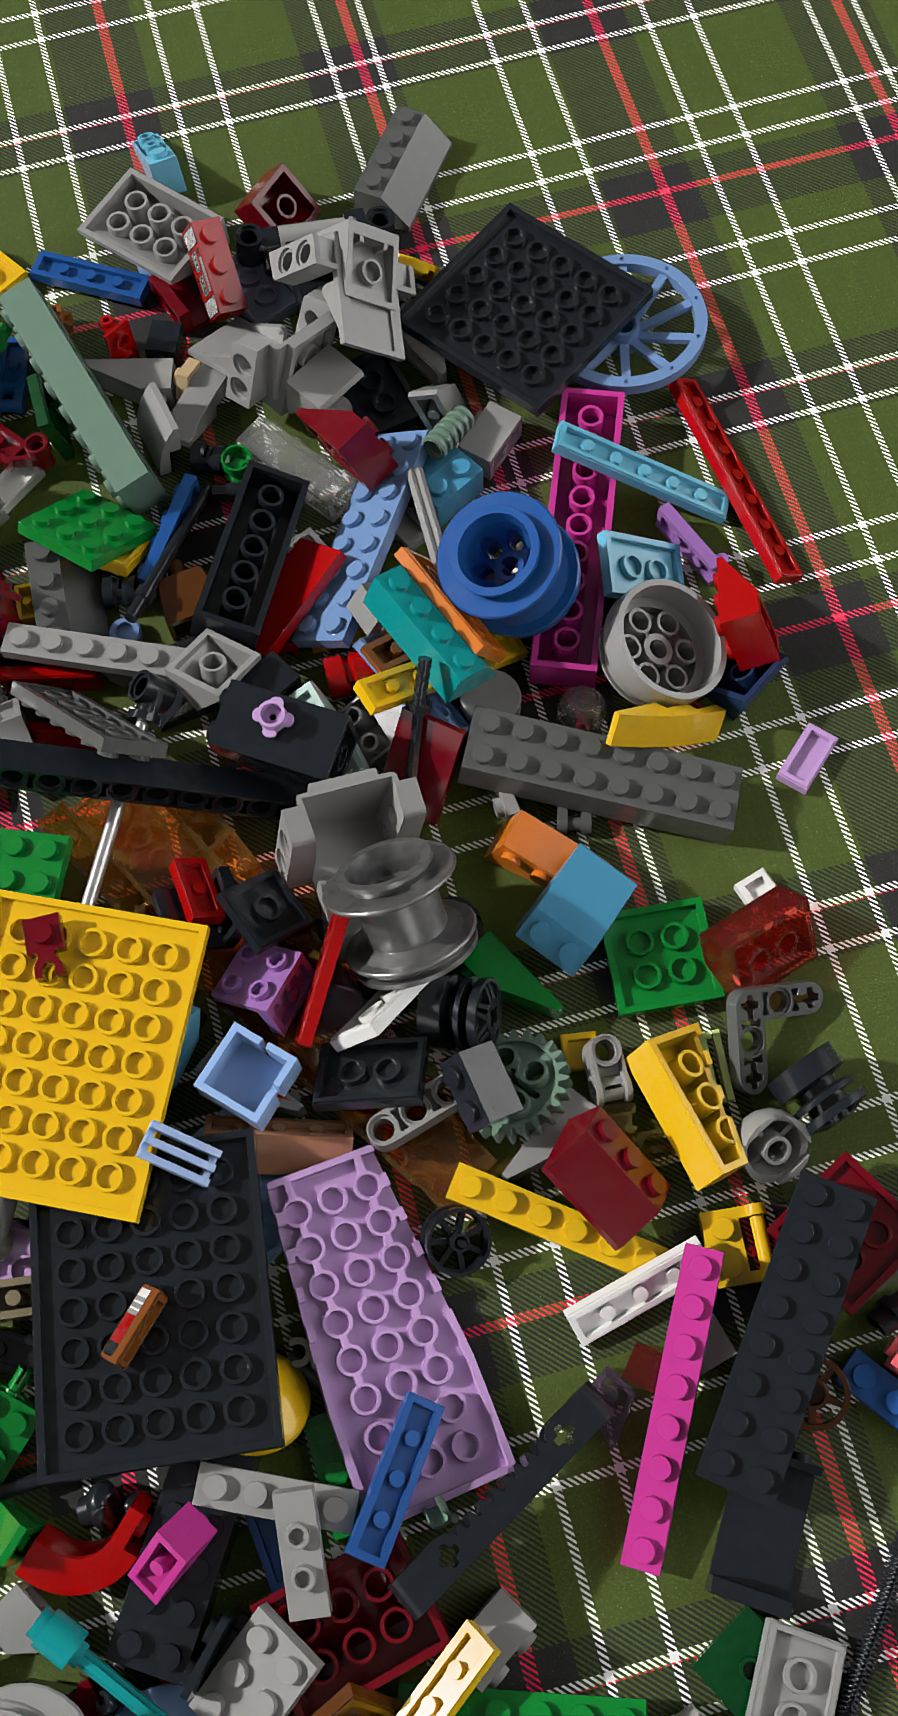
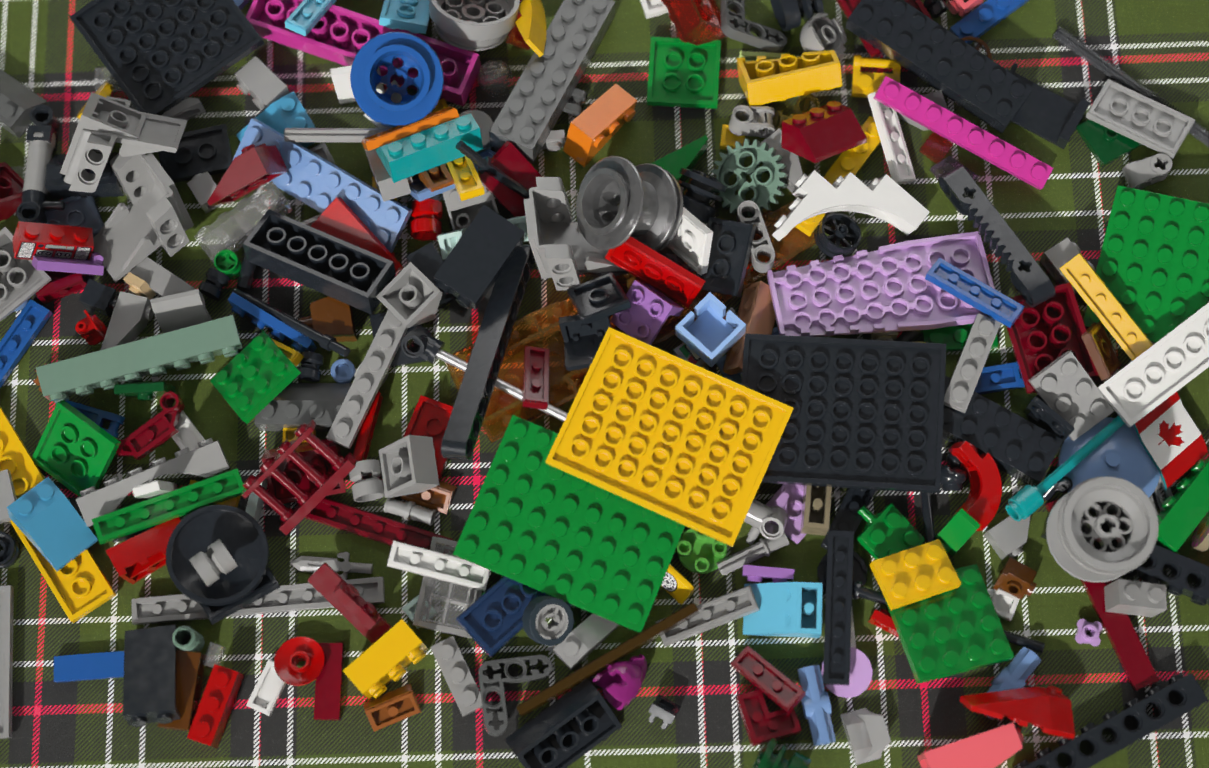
camera: 75 degrees left, 5 degrees up
(44, 940) = (591, 431): dark red plate -> none
(89, 721) = (427, 387): dark grey plate -> none
(132, 856) = (535, 378): none -> dark red tile
(134, 1326) = (857, 419): dark orange slope -> none
(172, 1552) = (992, 425): dark pink slope -> none
(191, 294) = (93, 266): none -> medium lavender hinge
(196, 891) = (572, 341): red plate -> none
(207, 1165) = (764, 362): light blue tile -> none
(272, 707) = (475, 246): lavender plate -> none
(302, 1553) = (1006, 350): light grey plate -> none
(321, 381) = (191, 181): light grey slope -> none
(435, 402) = (226, 110): light grey slope -> none
(440, 1515) = (998, 275): sand green hand -> none
(448, 432) = (257, 105): sand green piece -> none
(480, 1086) = (753, 187): brick -> none
(527, 1294) = (880, 199): none -> white arch
(575, 909) = (645, 110): dark azure slope -> none

